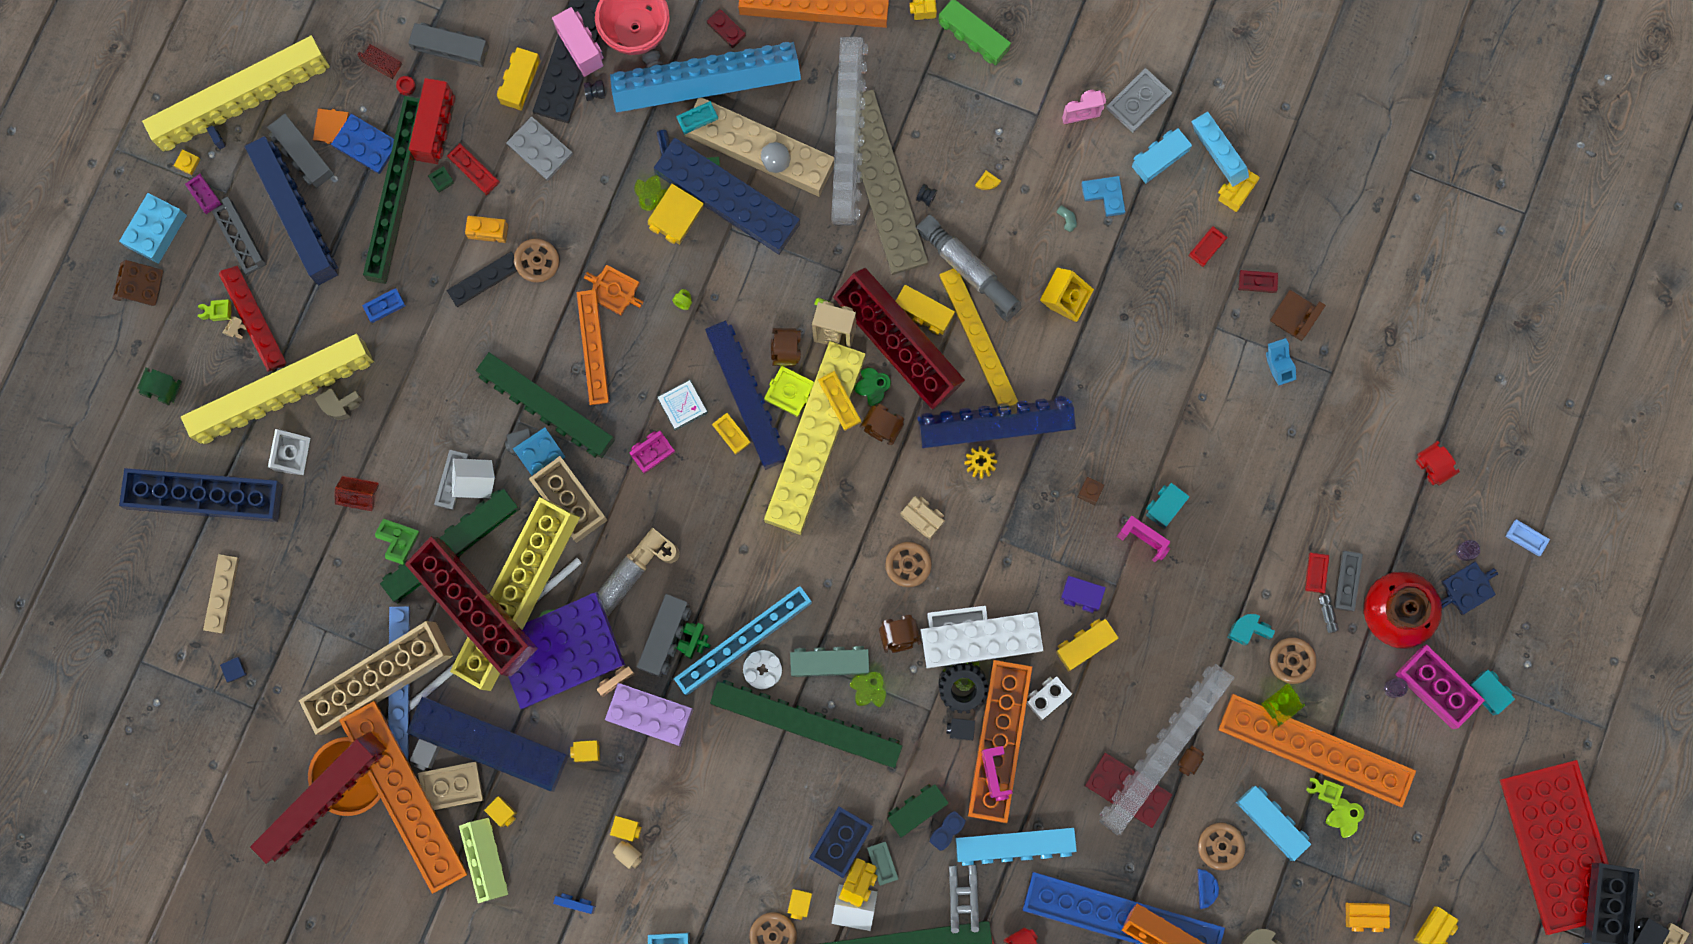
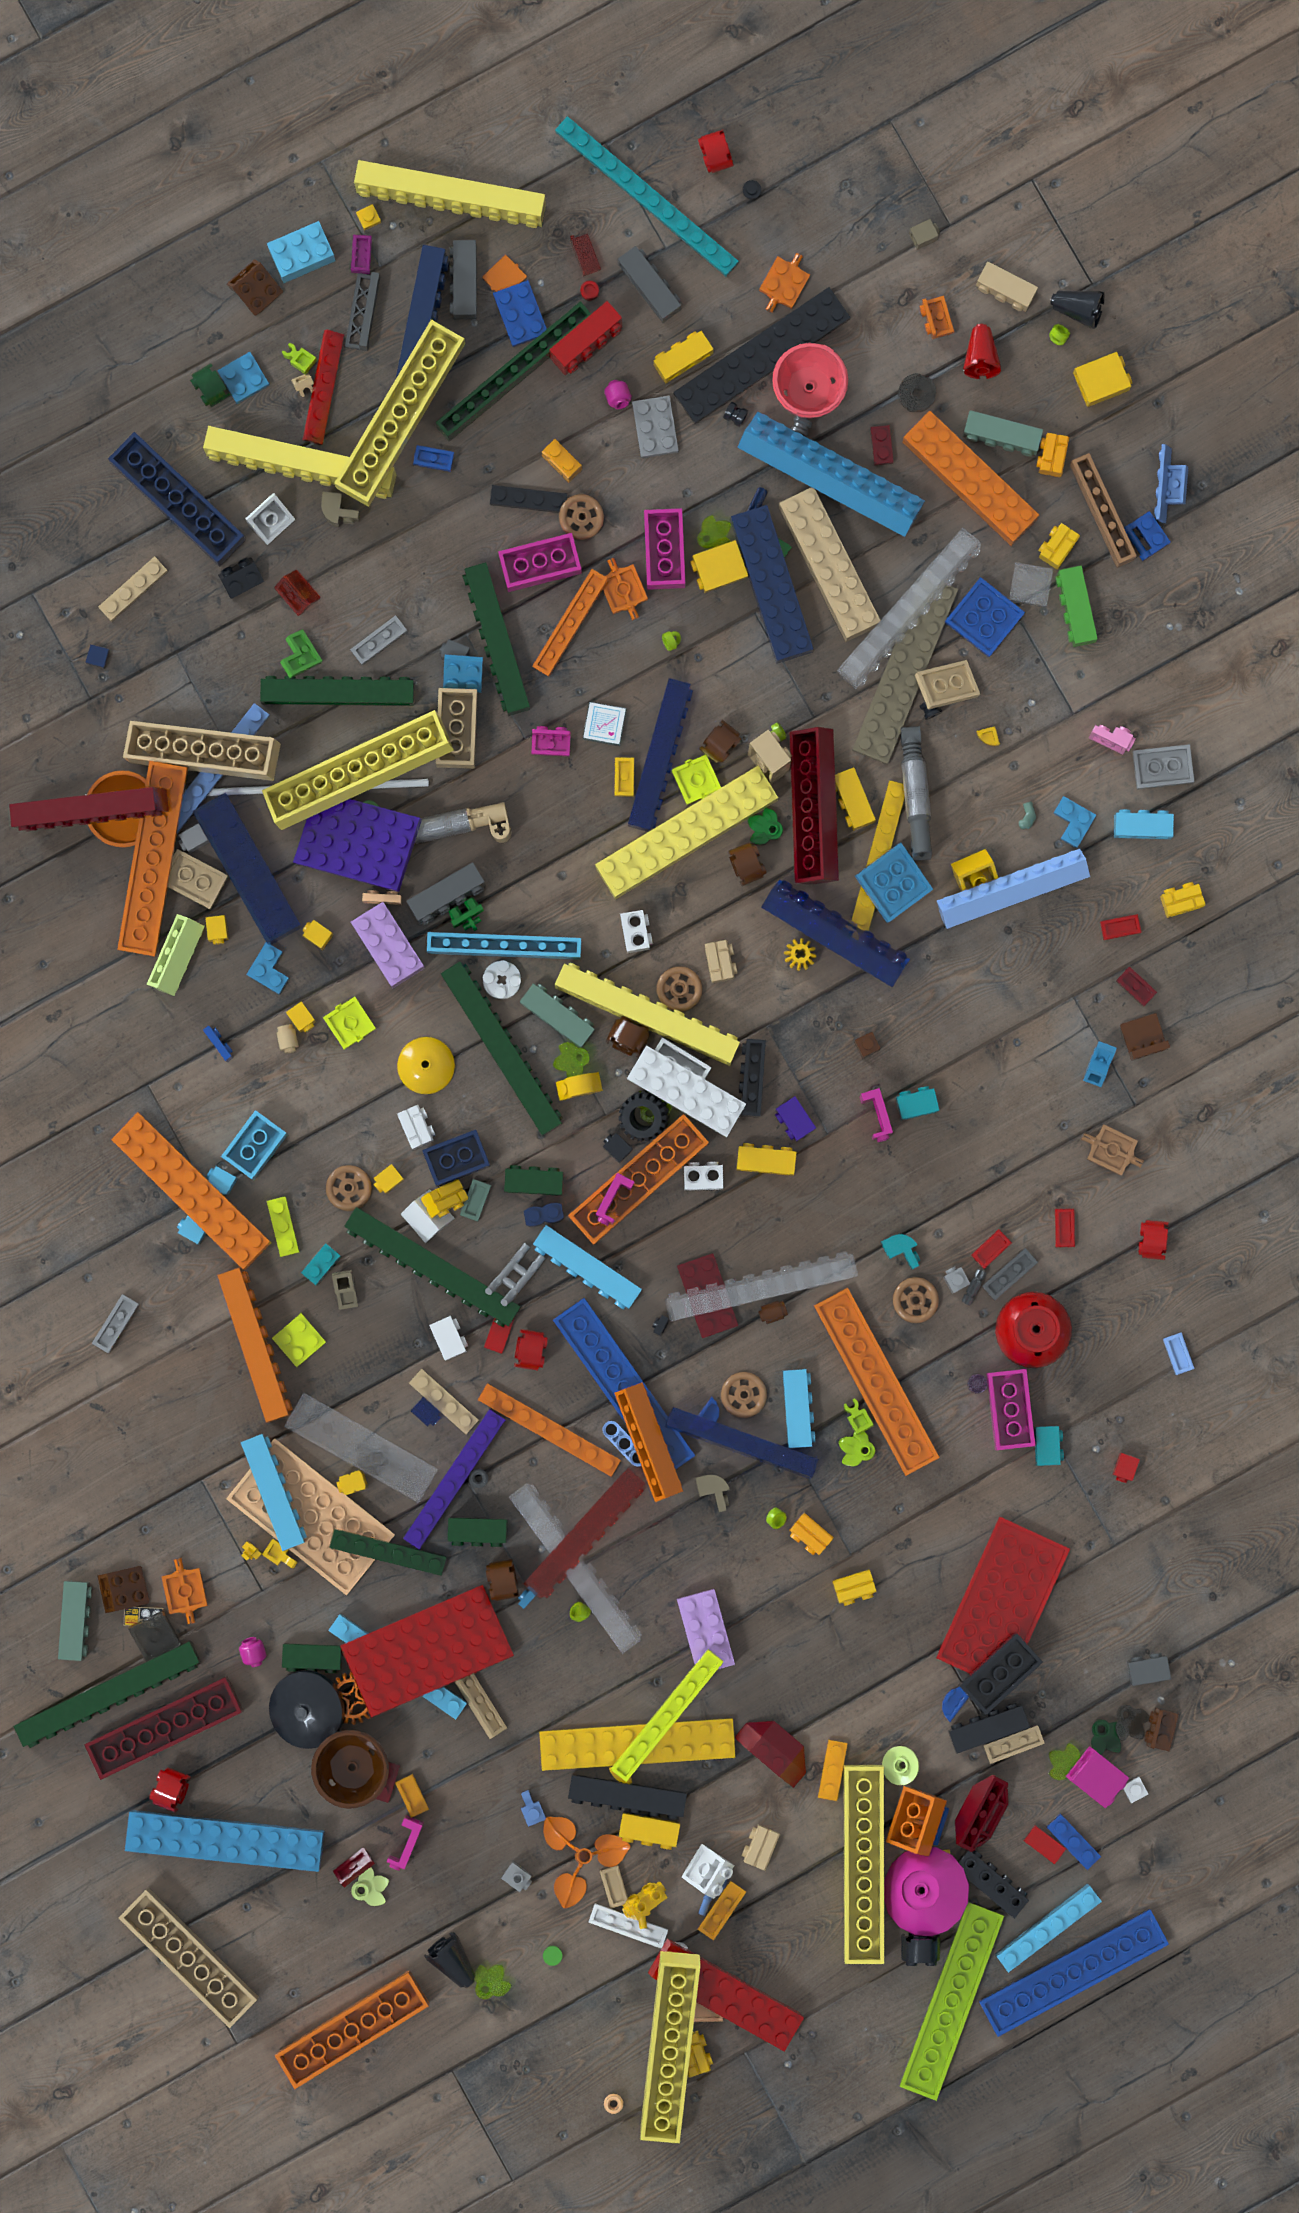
camera: 35 degrees right, 5 degrees up
(182, 360) = (243, 377): none -> dark azure plate
(216, 137) = (407, 215): dark blue tile -> none
(301, 516) = (240, 577): none -> black bracket
(327, 287) = (400, 413): none -> light yellow brick
(441, 179) = (557, 390): dark green plate -> none
(471, 606) = (316, 753): dark red brick -> none
(472, 478) = (395, 652): white slope -> none
(473, 169) = (589, 402): red tile -> none
(490, 145) = (617, 394): none -> dark pink head
(531, 319) = (540, 562): none -> dark pink brick
(564, 814) = (263, 971): none -> dark azure plate
(578, 41) = (753, 366): bright pink brick -> none
(621, 233) = (664, 549): none -> dark pink brick
(668, 802) = (349, 1023): none -> neon yellow plate
(697, 117) = (796, 503): teal plate -> none
(759, 801) = (428, 1079): none -> yellow dish
(775, 157) = (833, 584): light grey hair -> none
(788, 843) = (415, 1126): none -> white brick
(833, 550) = (631, 932): none -> white brick
(839, 400) = (727, 818): yellow tile -> none
(891, 705) = (579, 1086): none -> yellow brick
(908, 601) = (643, 1012): none -> light yellow brick
(911, 94) = (984, 617): none -> blue plate
(924, 166) = (947, 684): none -> tan plate
(925, 43) = (1030, 585): none -> clear plate
(1008, 348) = (893, 882): none -> dark azure plate
(1022, 585) = (753, 1077): none -> black brick
(1103, 281) = (1013, 888): none -> light blue brick
(1111, 845) = (660, 1325): none -> black plate
(1220, 149) = (1192, 857): medium azure brick -> none
(1253, 887) = (741, 1443): none -> clear blue brick
(1283, 704) = (879, 1325): clear neon green plate -> none
(1311, 618) = (956, 1279): none -> light grey brick
(1329, 925) = (776, 1518): none -> lime tile
(1345, 420) = (1112, 1150): none -> medium nougat plate
(1359, 510) = (1064, 1228): none -> red tile
(1418, 604) = (1030, 1316): reddish brown brick -> none
(1464, 552) = (1122, 1325): clear purple wheel -> none
(1468, 588) = (1099, 1354): dark blue plate -> none
(1564, 660) = (1125, 1468): none -> red brick

